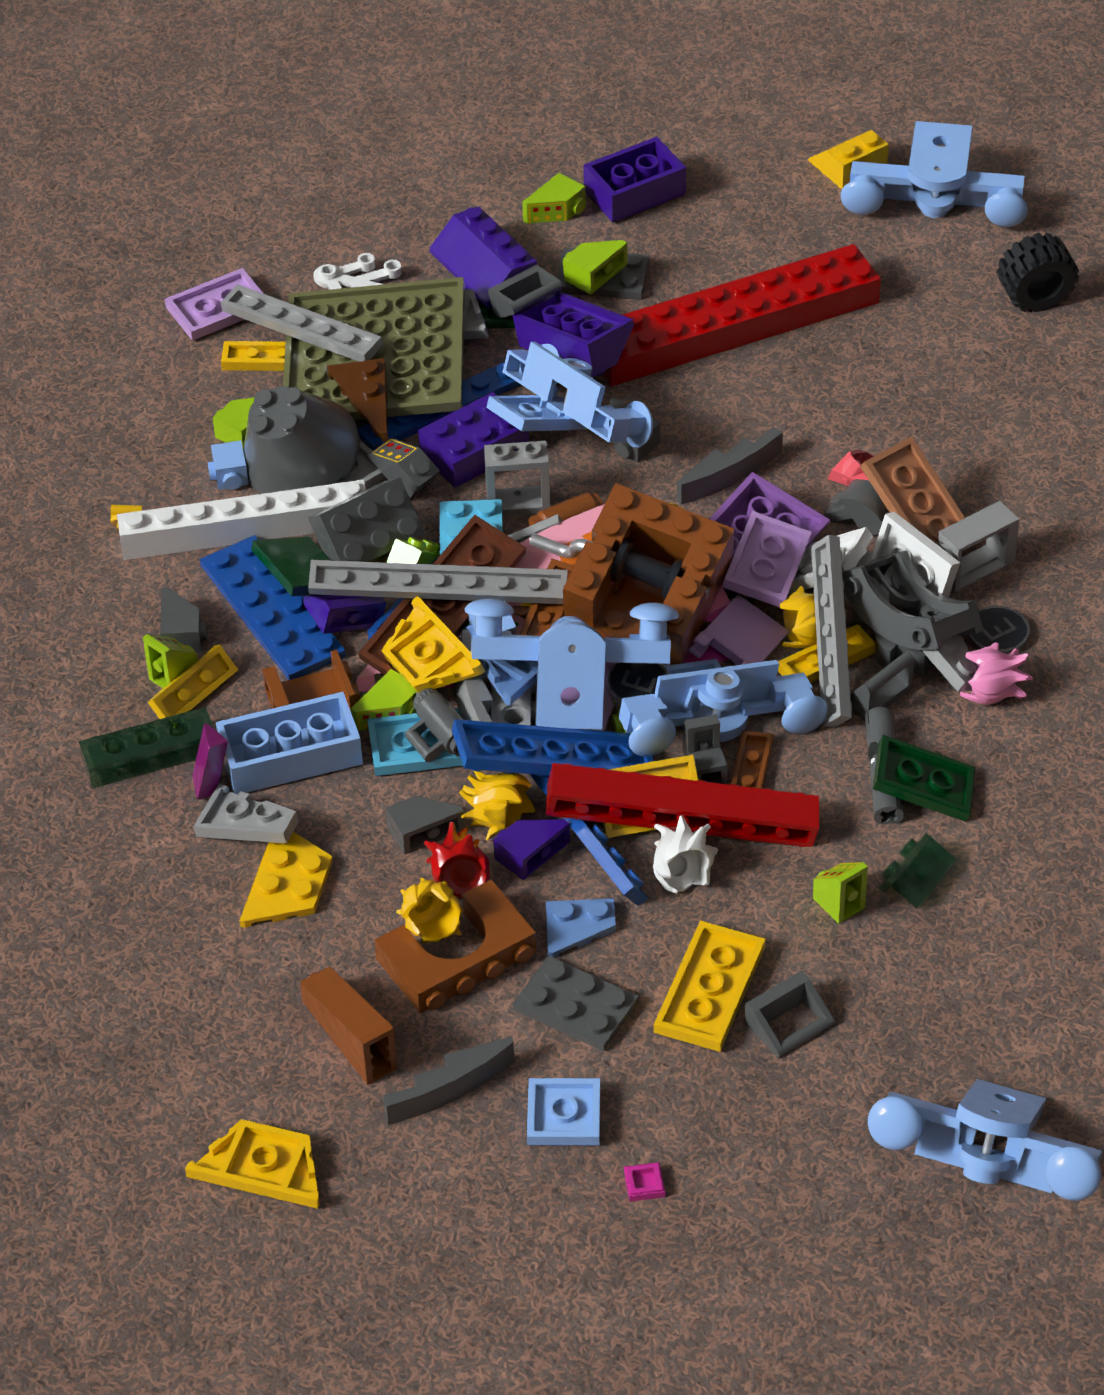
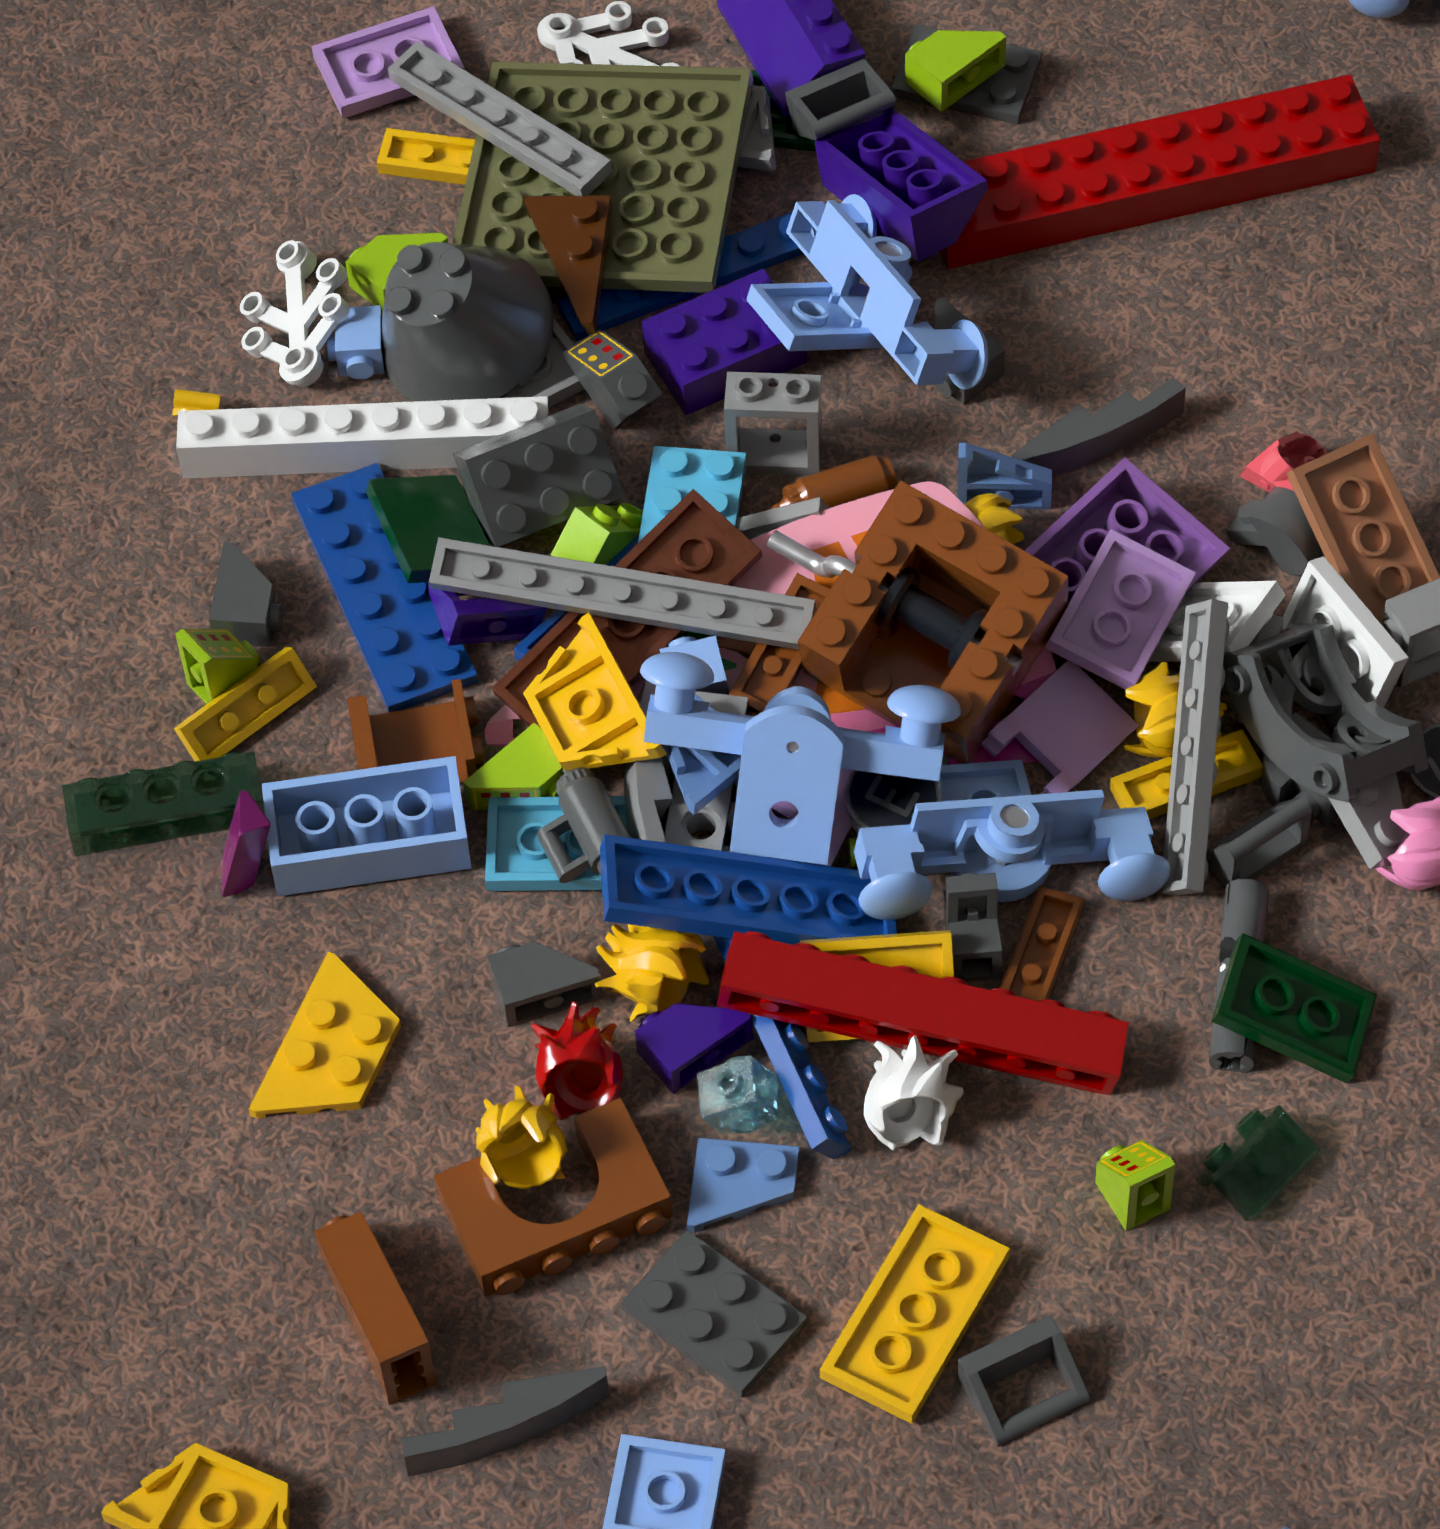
camera: 10 degrees right, 10 degrees up
(193, 479) = (302, 361): none -> white plant
(241, 818) = (280, 941): light grey wing -> none
(569, 871) = (738, 1095): none -> clear light blue brick
(686, 495) = (995, 473): none -> medium blue wing

